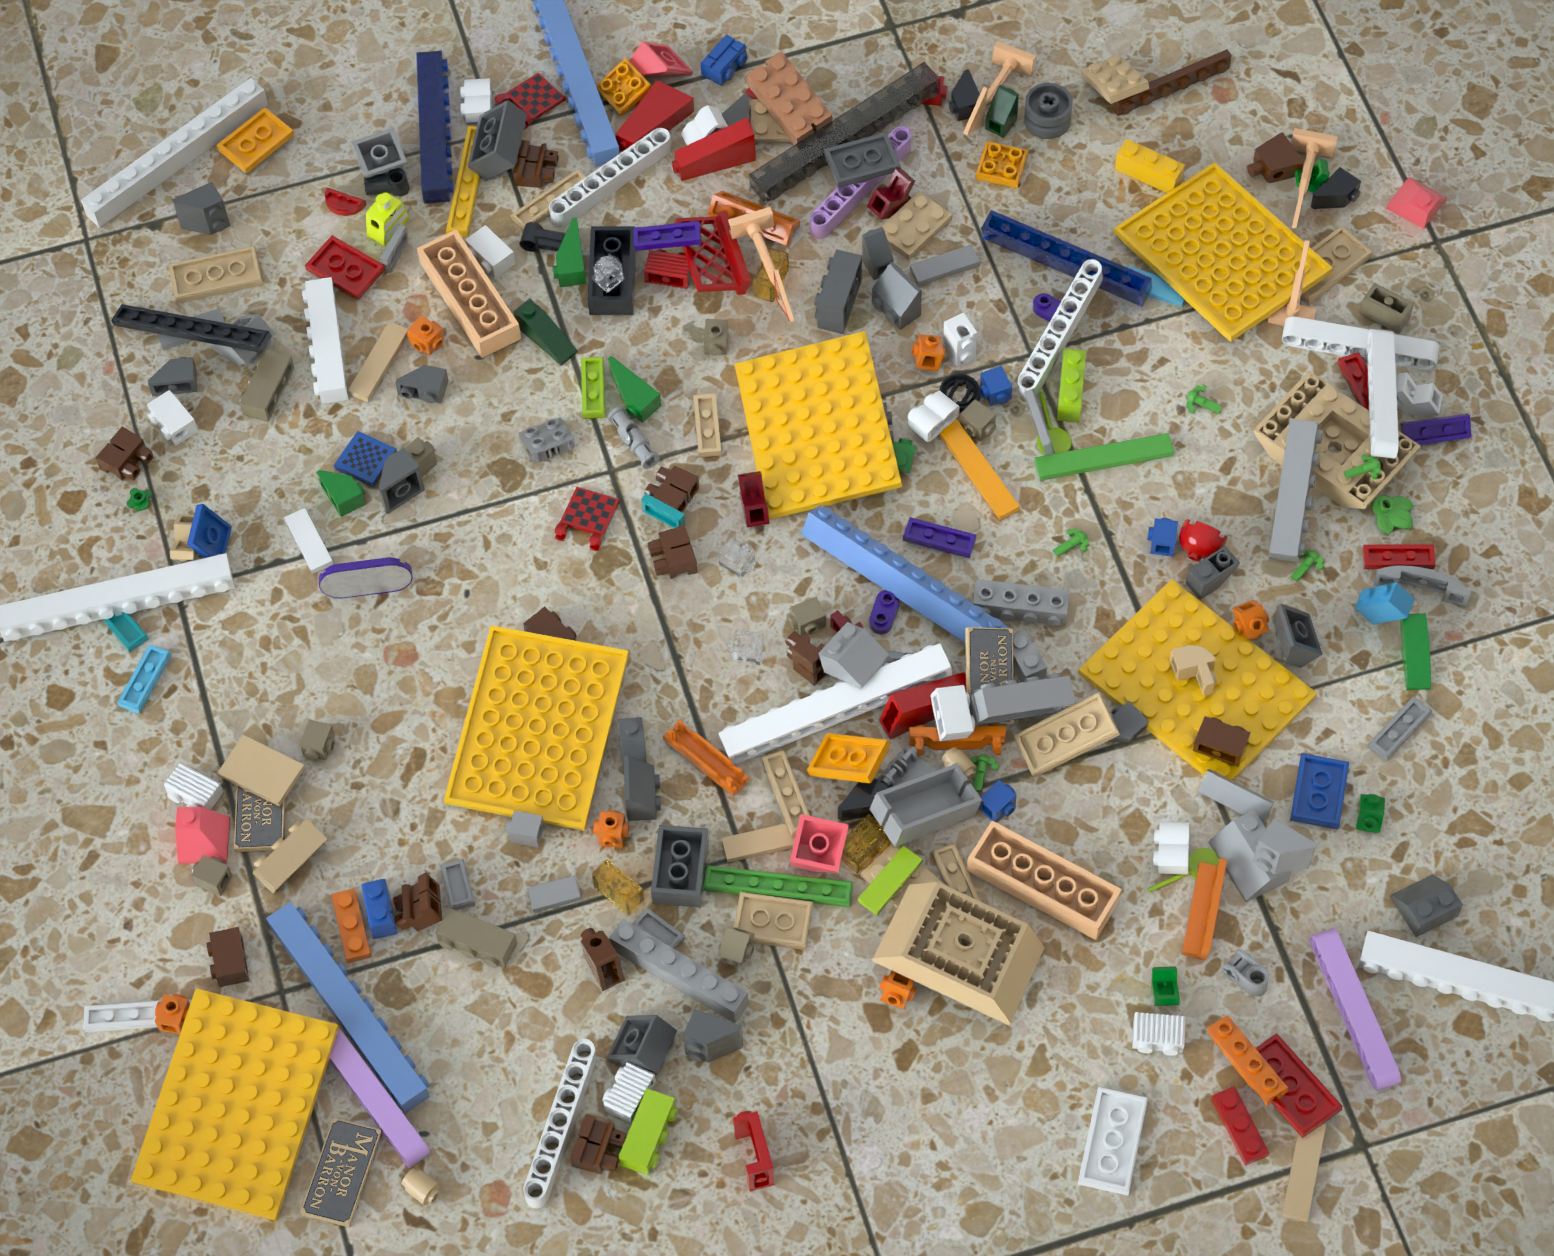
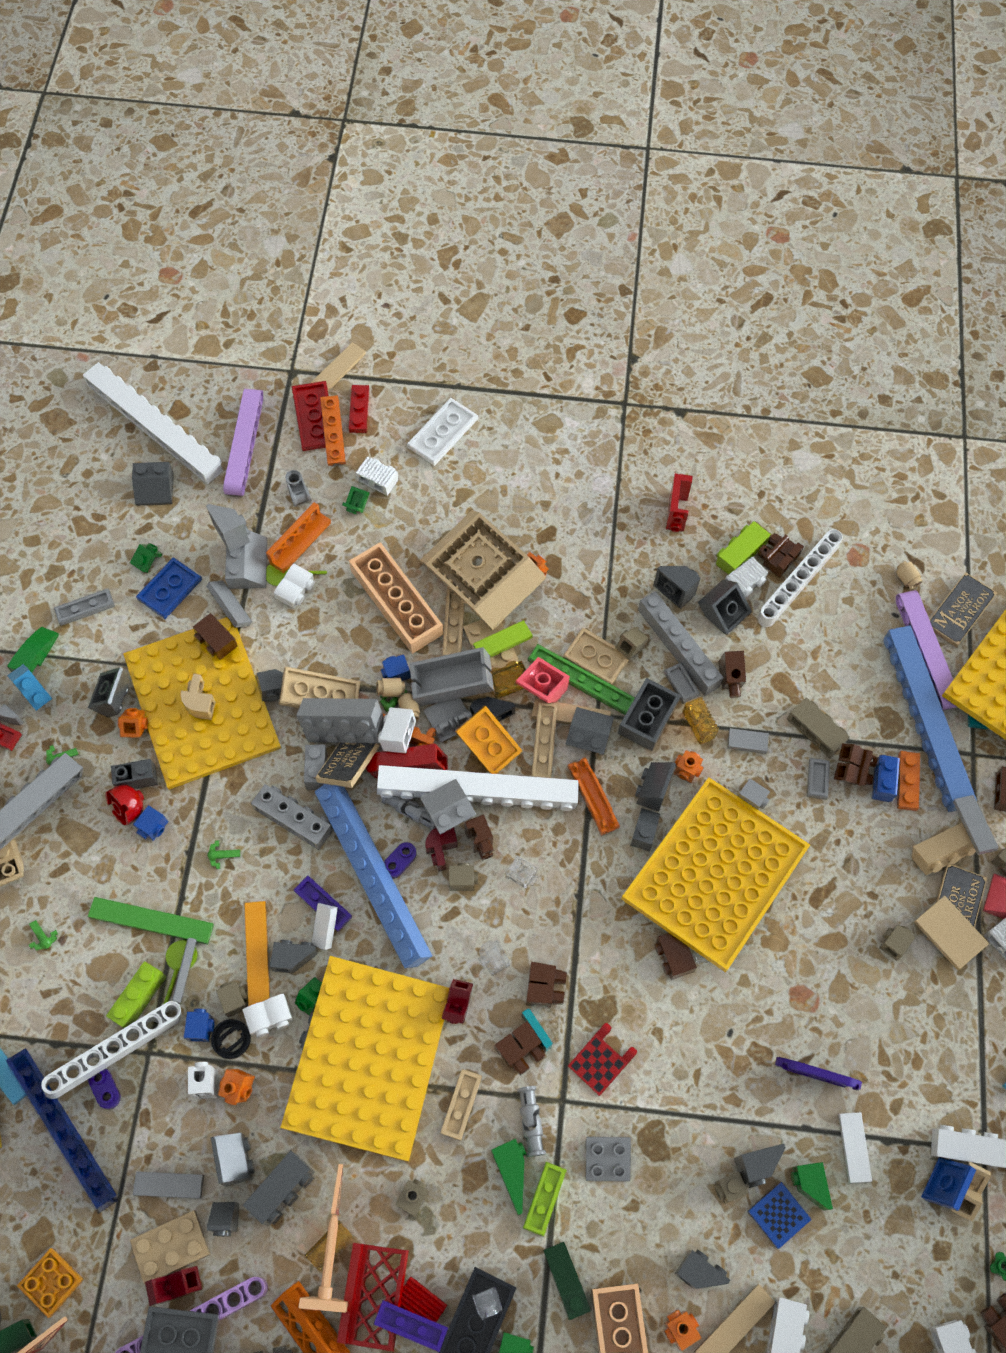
camera: 160 degrees left, 5 degrees up
(263, 880) = (975, 825): none -> light grey tile
(740, 817) = (589, 730): none -> dark grey slope
(923, 513) = (324, 926): none -> white slope
(942, 478) = (291, 957): none -> dark grey slope
(990, 772) = (390, 687): none -> tan brick

